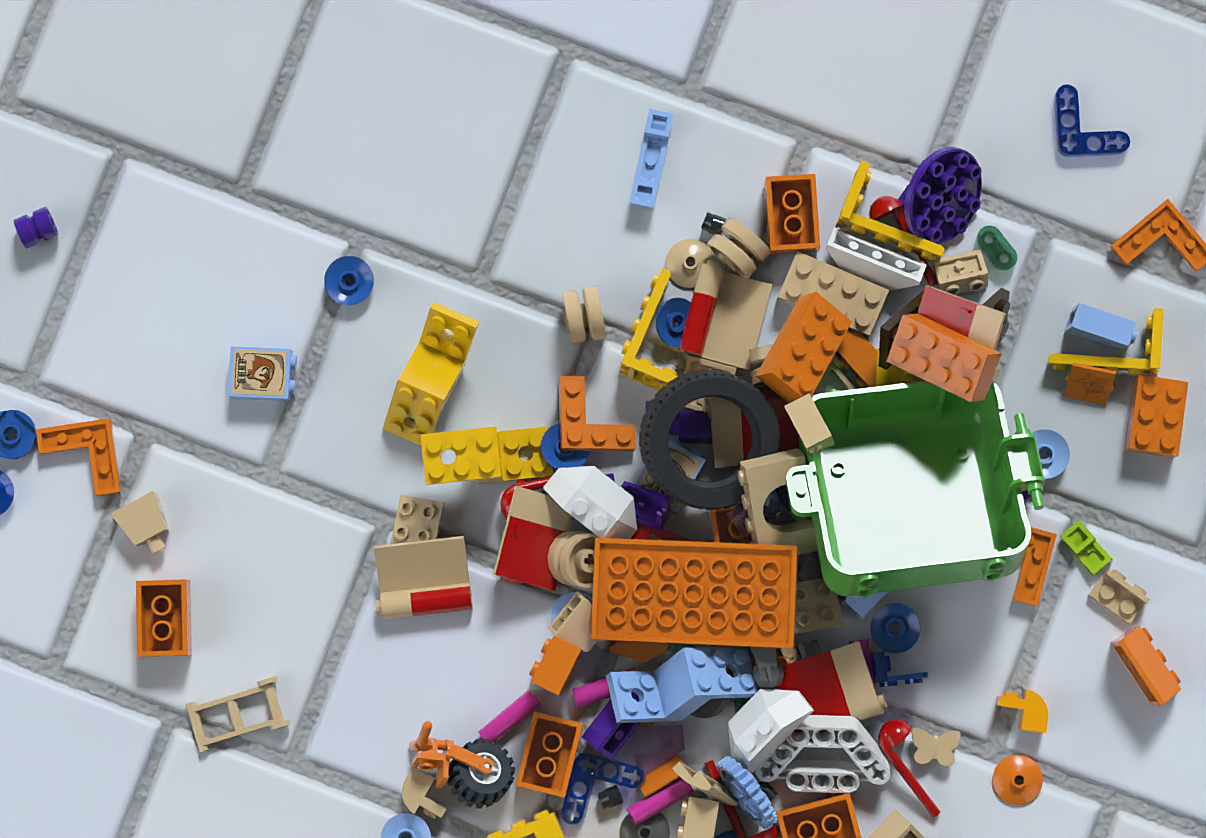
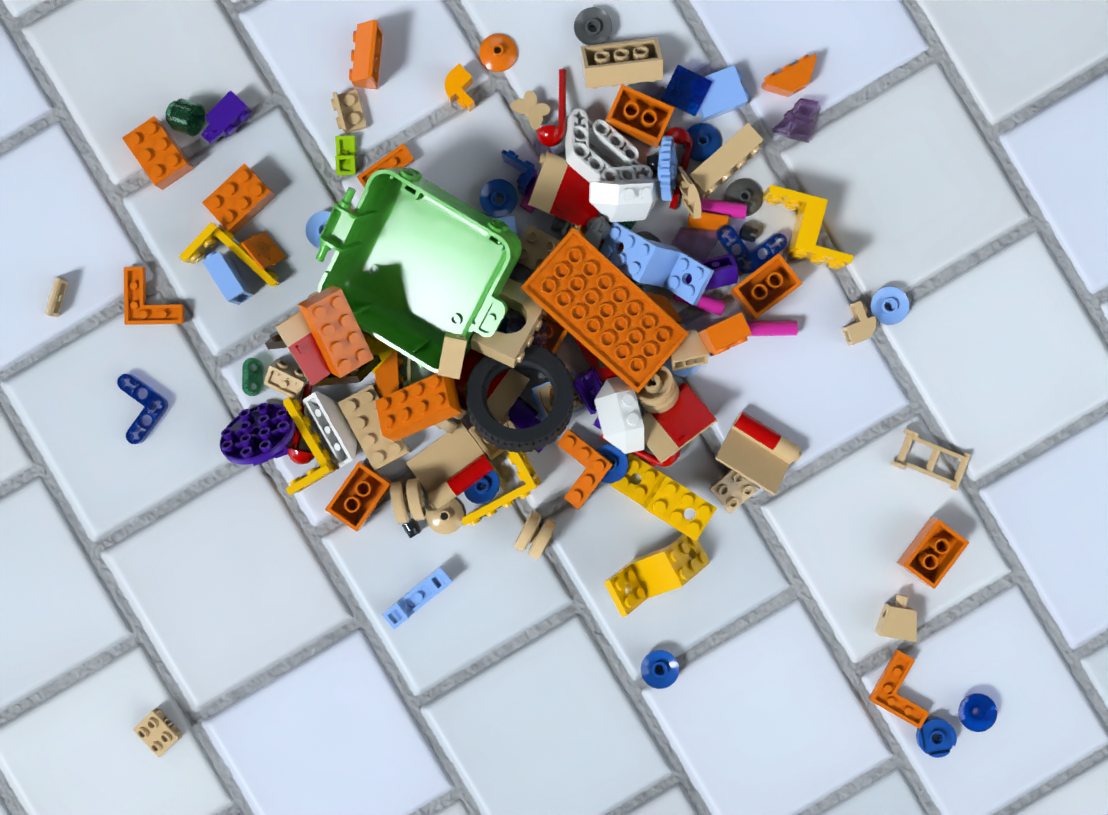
camera: 140 degrees left, 5 degrees up
(261, 373) = (757, 654): brick -> none
(477, 771) = (817, 310): piece -> none

